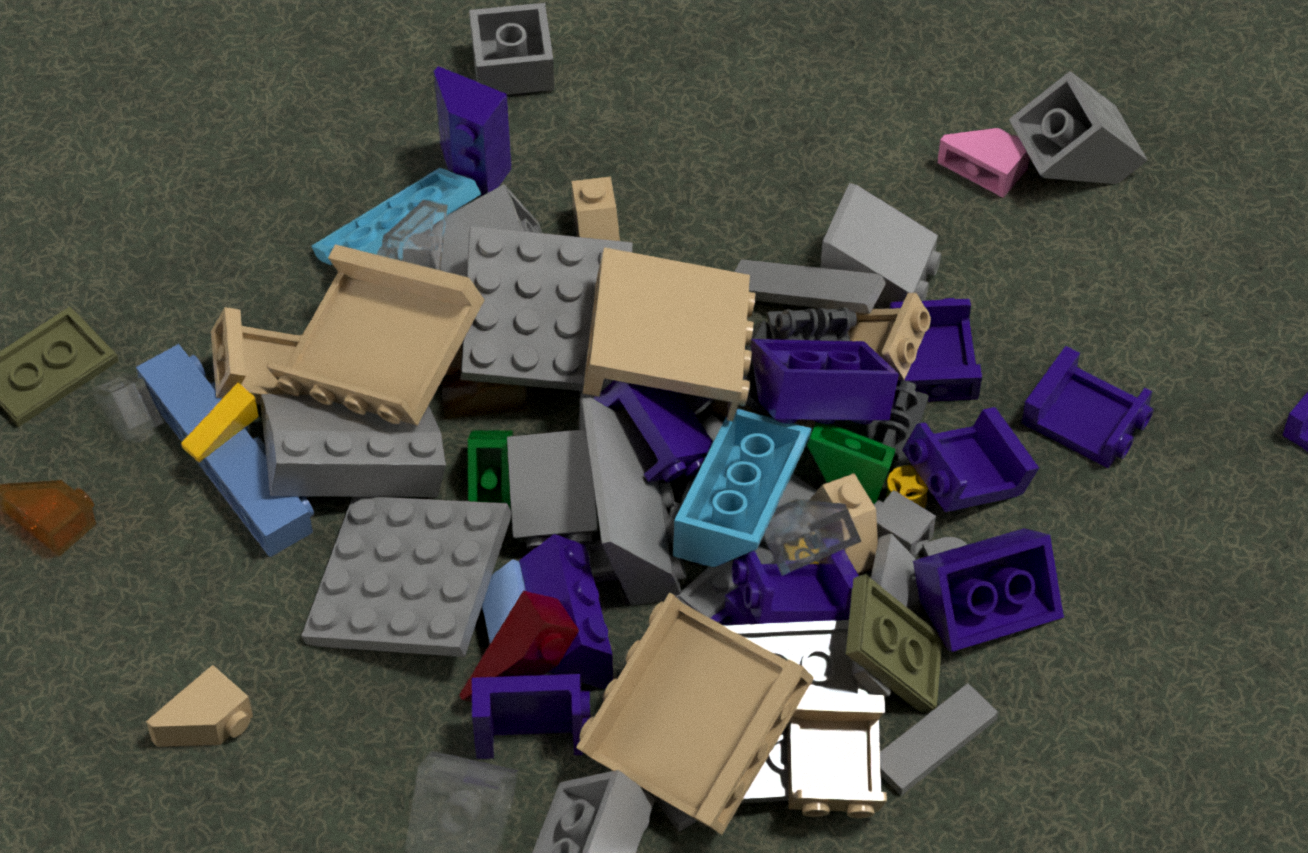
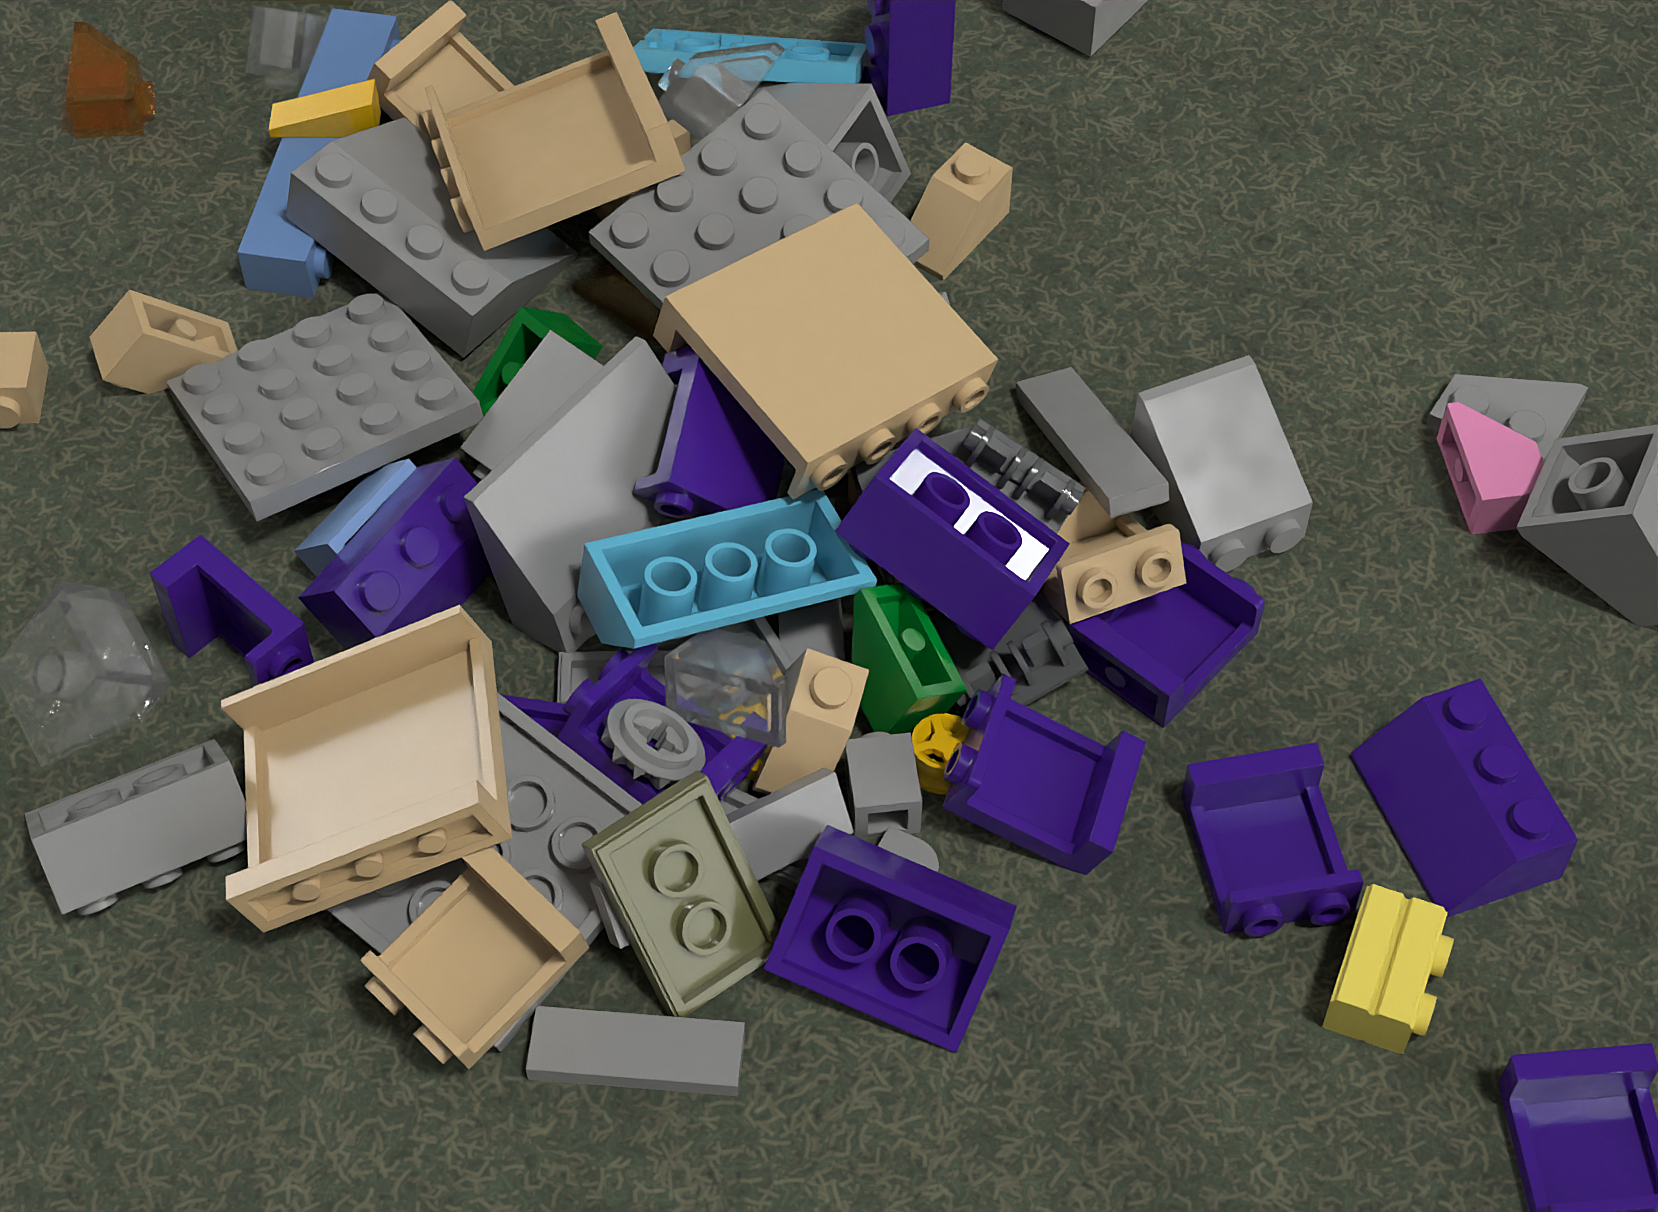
camera: 45 degrees right, 0 degrees up
(276, 621) = (155, 341): none -> tan slope
(528, 641) = (305, 544): dark red slope -> none
(805, 588) = (635, 723): none -> light grey gear
(962, 114) = (1527, 406): none -> light grey wing
(1143, 321) = (1465, 800): none -> dark purple slope
(1195, 423) = (1387, 970): none -> light yellow brick

